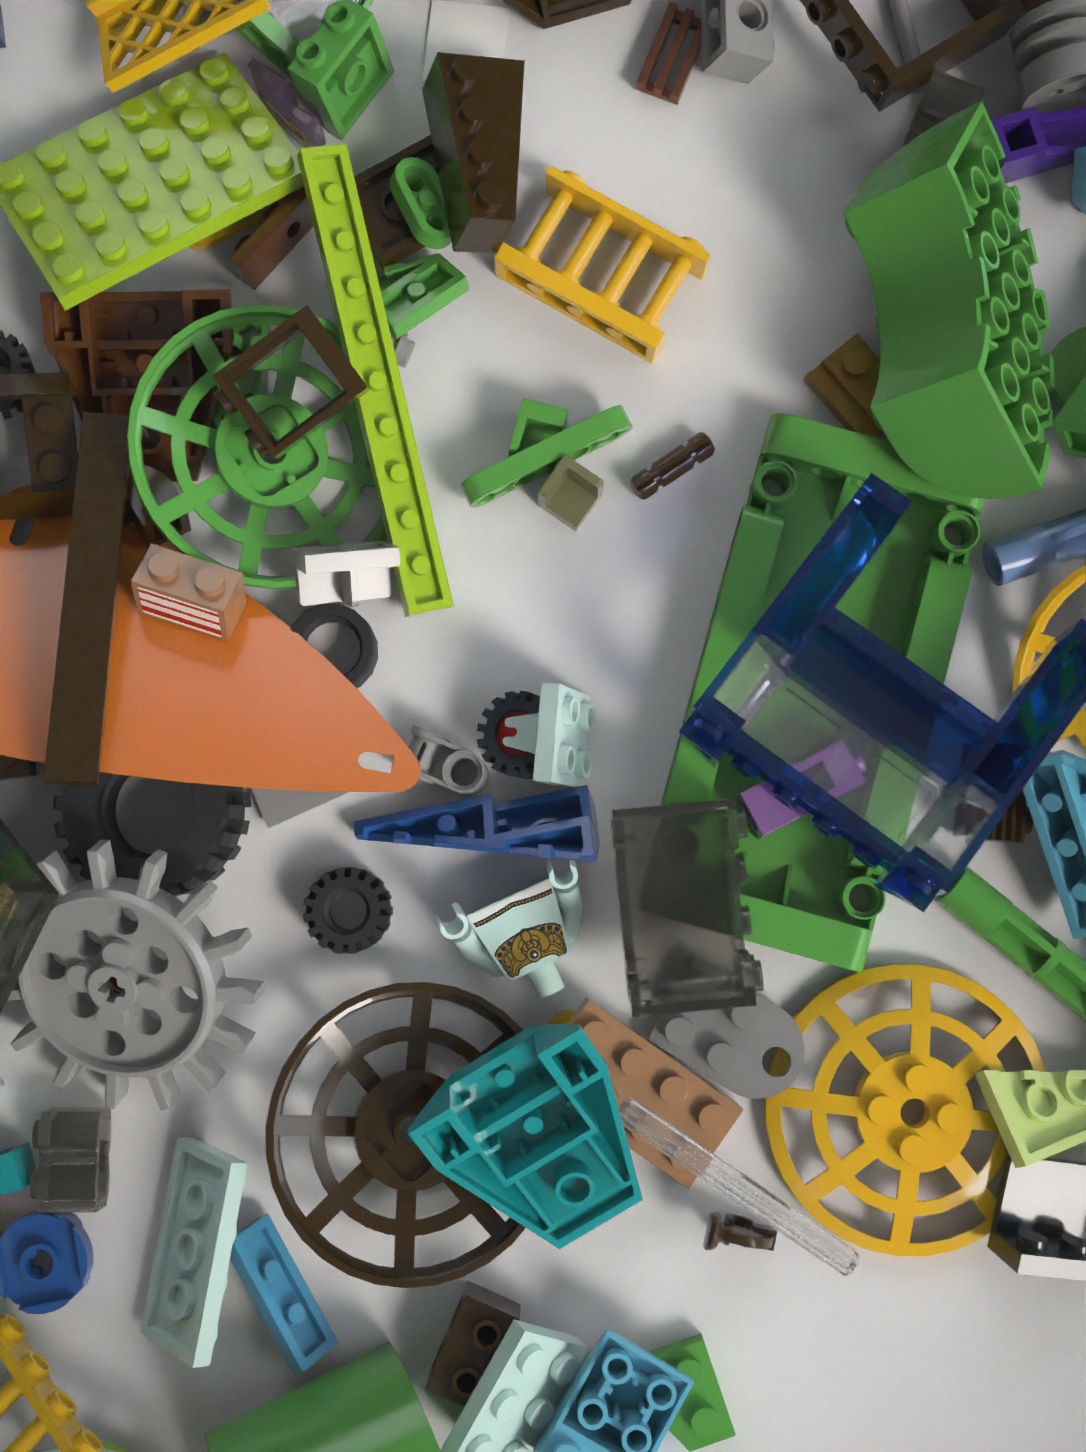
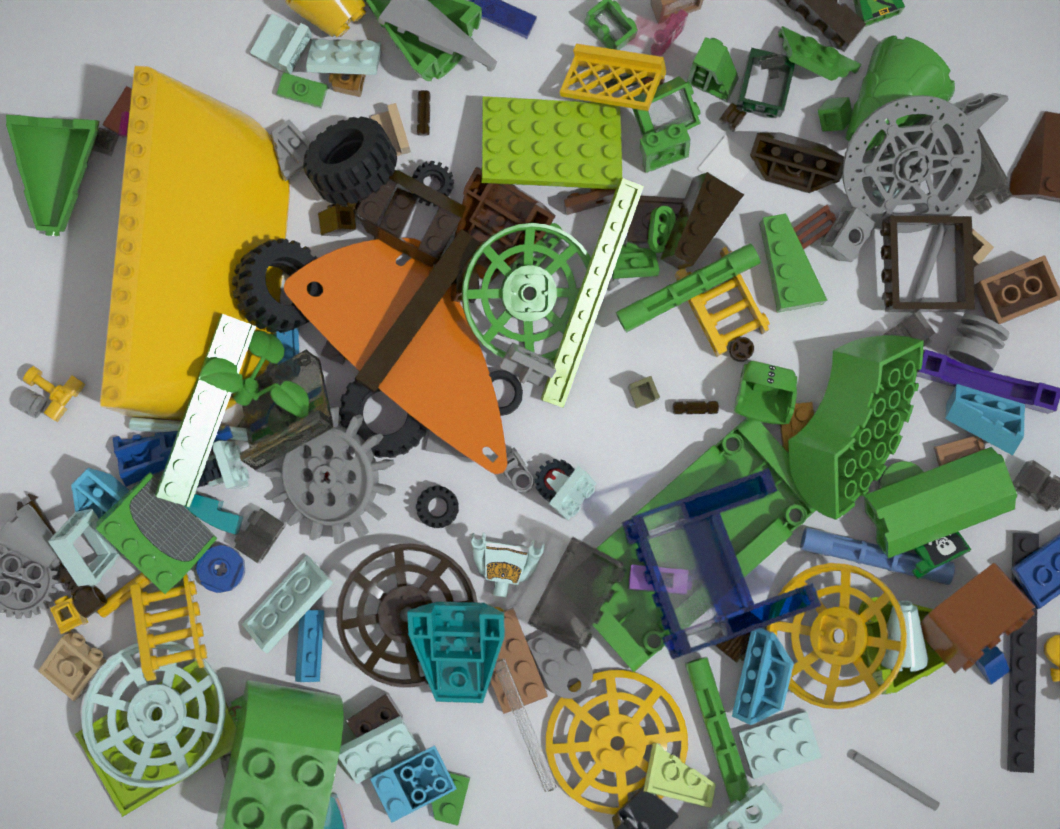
camera: 30 degrees right, 0 degrees up
(189, 592) = (457, 333): medium nougat brick -> none
(234, 400) = (529, 288): dark brown window -> none
(282, 104) = (630, 140): clear purple slope -> none
(531, 266) = (688, 287): none -> bright green piece
(535, 423) = (645, 358): bright green panel -> none
(540, 825) = (539, 523): blue wedge -> none
(545, 456) = (643, 369): bright green beam -> none
(674, 136) = (788, 266): none -> bright green wedge
(687, 310) = (744, 346): none -> dark brown wheel
(738, 1231) = (512, 744): dark brown piece -> none
(777, 362) = (766, 393): none -> bright green piece

